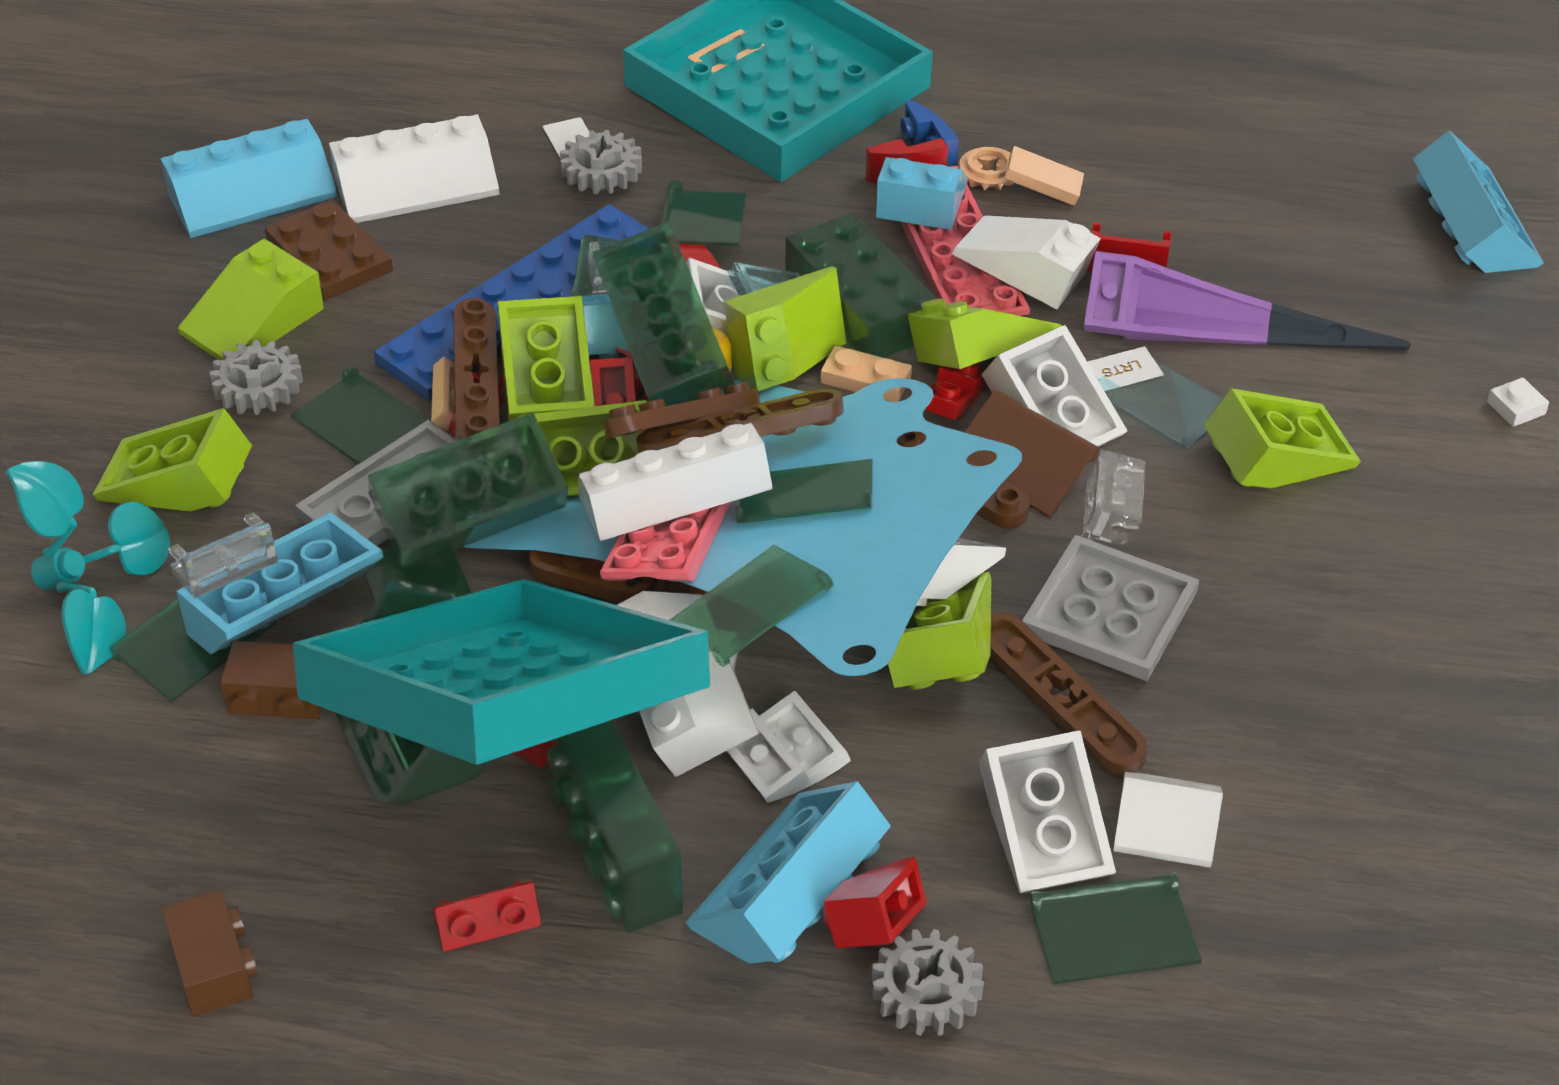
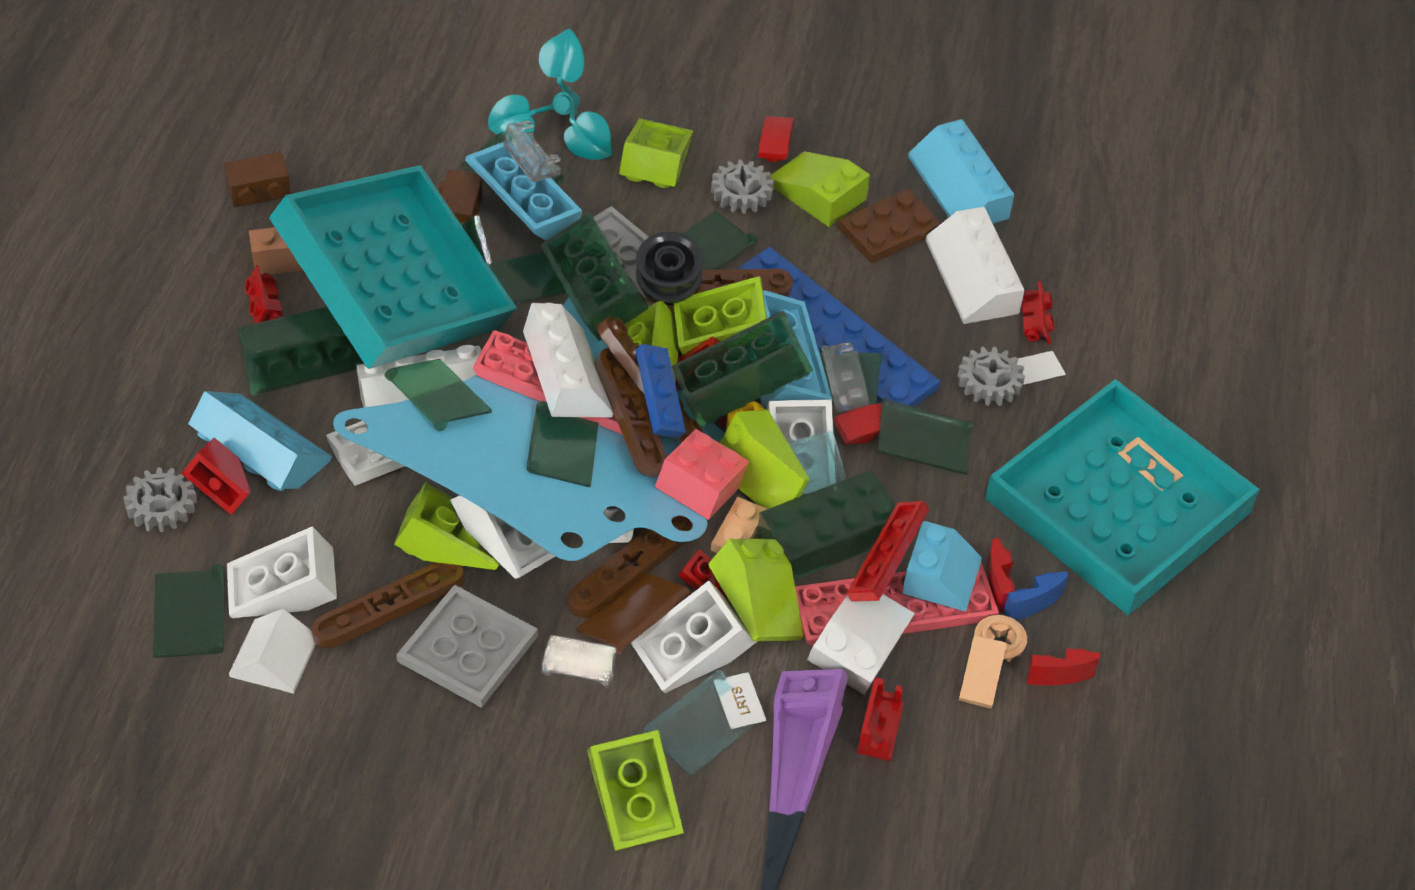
camera: 90 degrees right, 5 degrees up
(163, 345) = (776, 138): none -> red slope
(362, 900) = (271, 252): none -> nougat slope
(477, 388) = (655, 271): none -> black wheel
(509, 122) = (1041, 322): none -> red hinge
(713, 384) = (660, 391): none -> blue plate
(823, 360) = (701, 474): none -> coral brick
(927, 207) = (888, 551): none -> red tile
(1023, 118) = (1073, 668): none -> red slope

